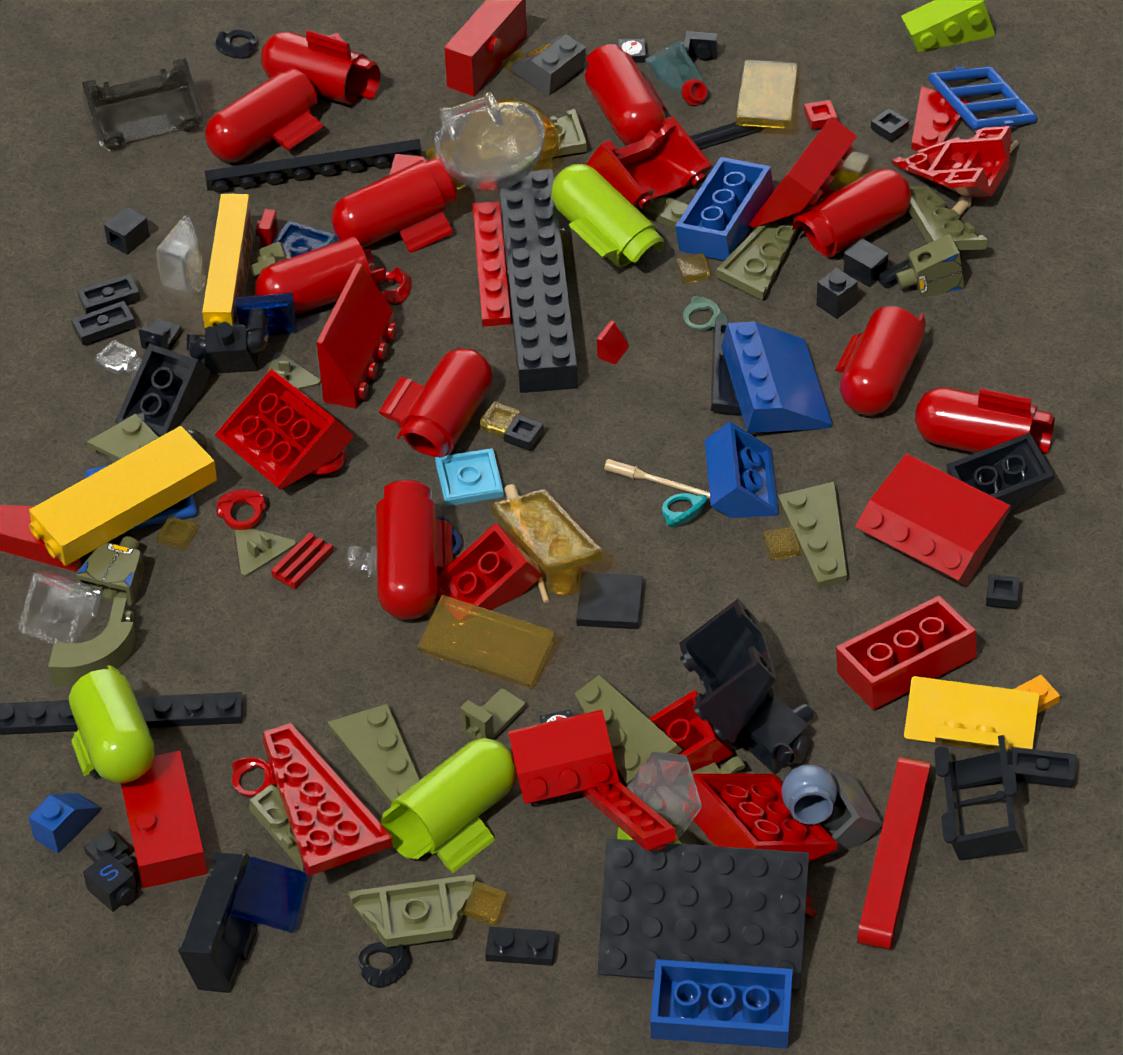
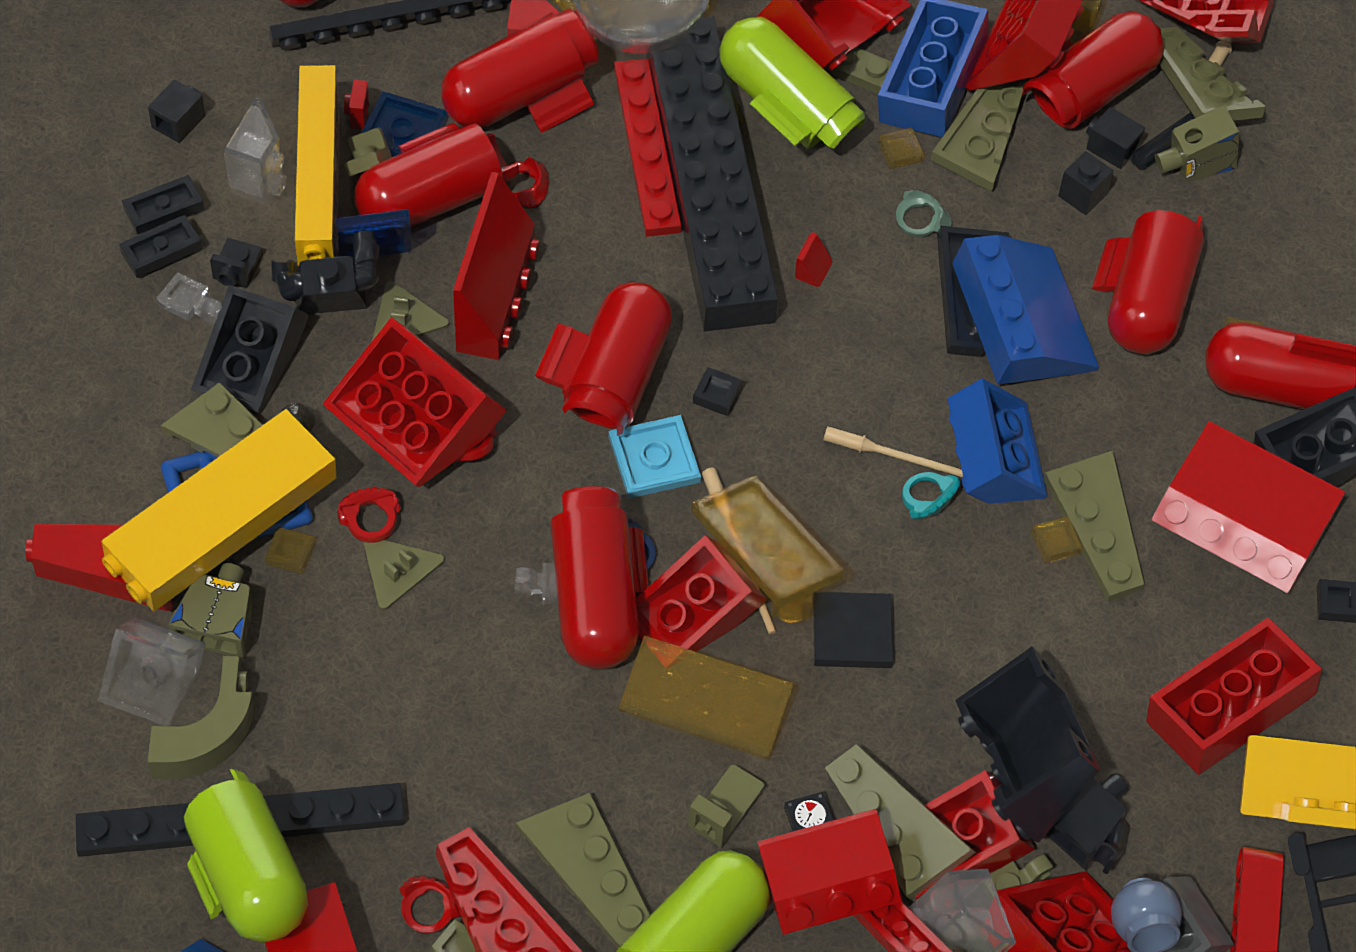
camera: 10 degrees left, 10 degrees up
(298, 558) = (472, 561): red tile -> none
(498, 418) = (684, 373): clear yellow plate -> none

